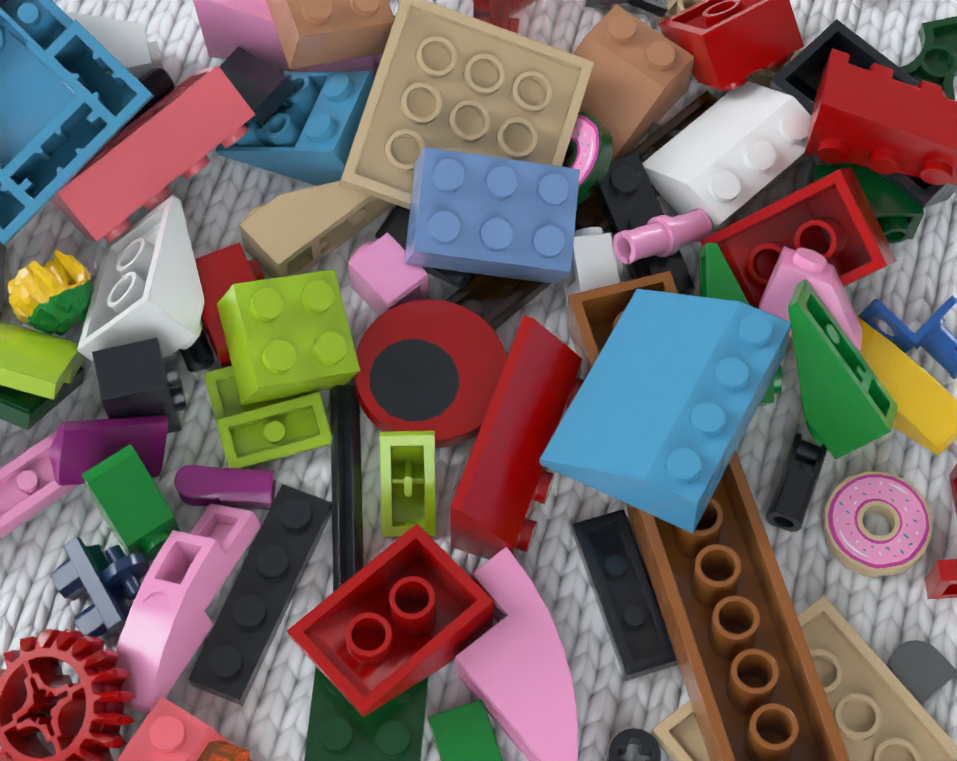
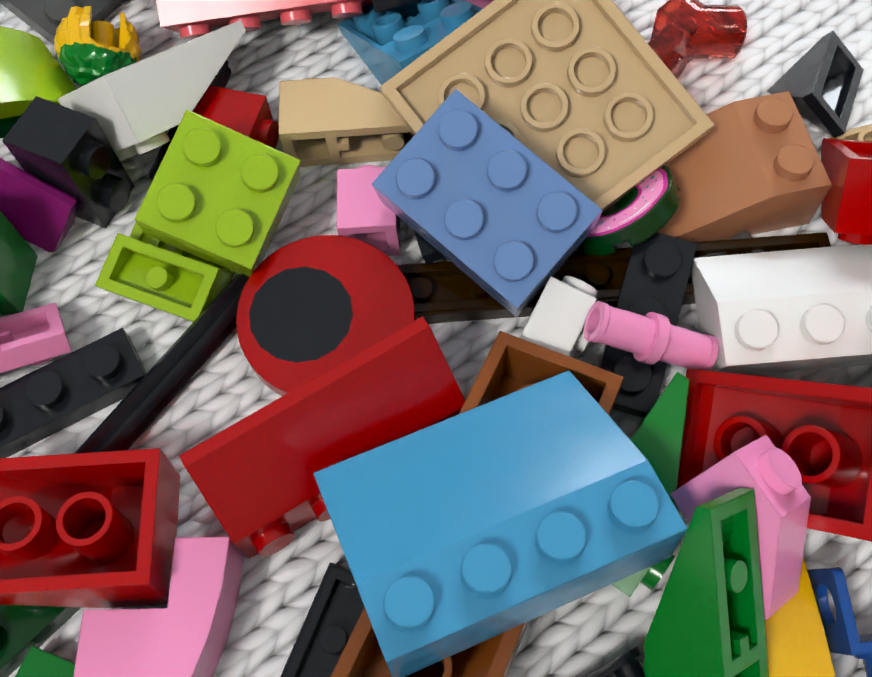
camera: 45 degrees right, 0 degrees up
(226, 487) = (79, 296): magenta bar -> none
(407, 482) = (214, 396): lime slope -> none

